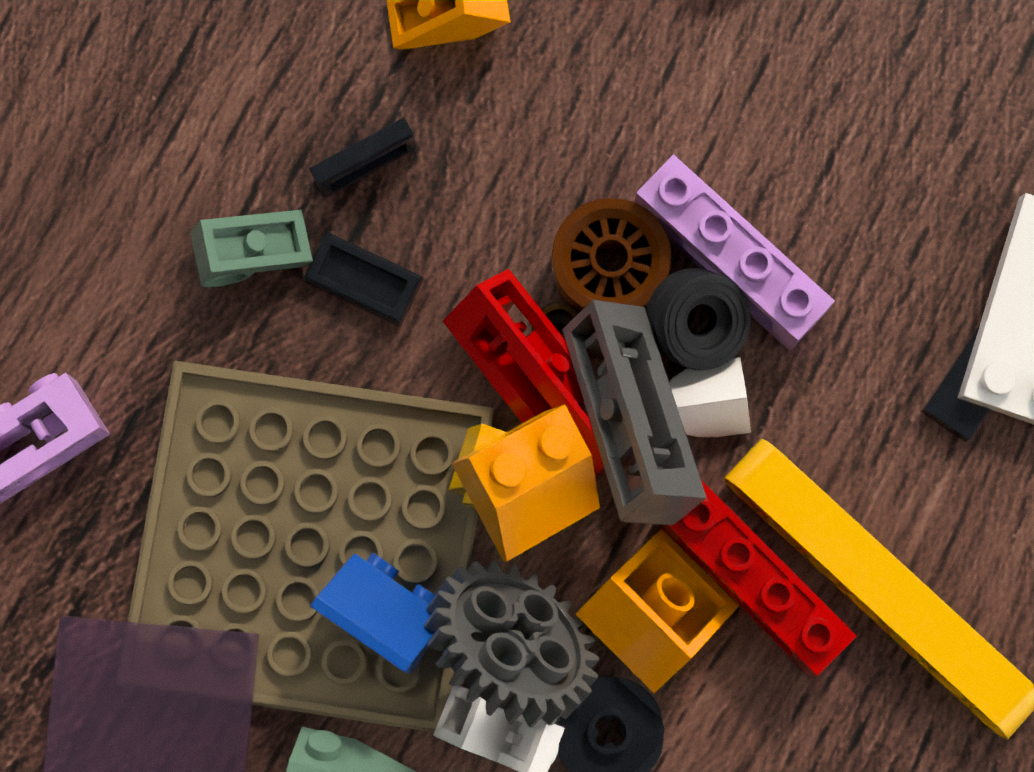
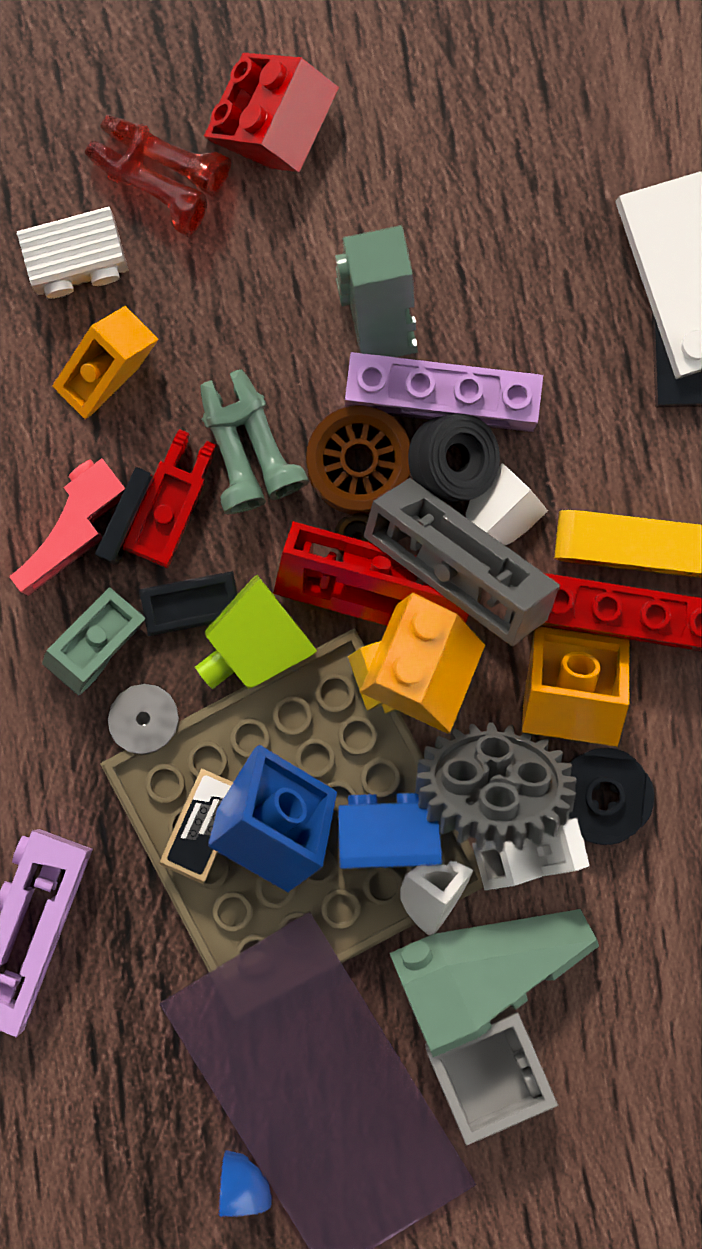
camera: 40 degrees left, 5 degrees up
(220, 483) = (188, 845): none -> slope
(242, 349) = (143, 719): none -> flat silver piece
(287, 524) = (274, 820): none -> blue slope
(307, 139) = (91, 495): none -> coral slope
(383, 700) = (433, 892): none -> white brick
(394, 349) = (253, 639): none -> lime torso
(411, 174) = (168, 504): none -> red hinge
(487, 212) = (244, 490): none -> sand green piece
(739, 113) = (378, 286): none -> sand green wedge

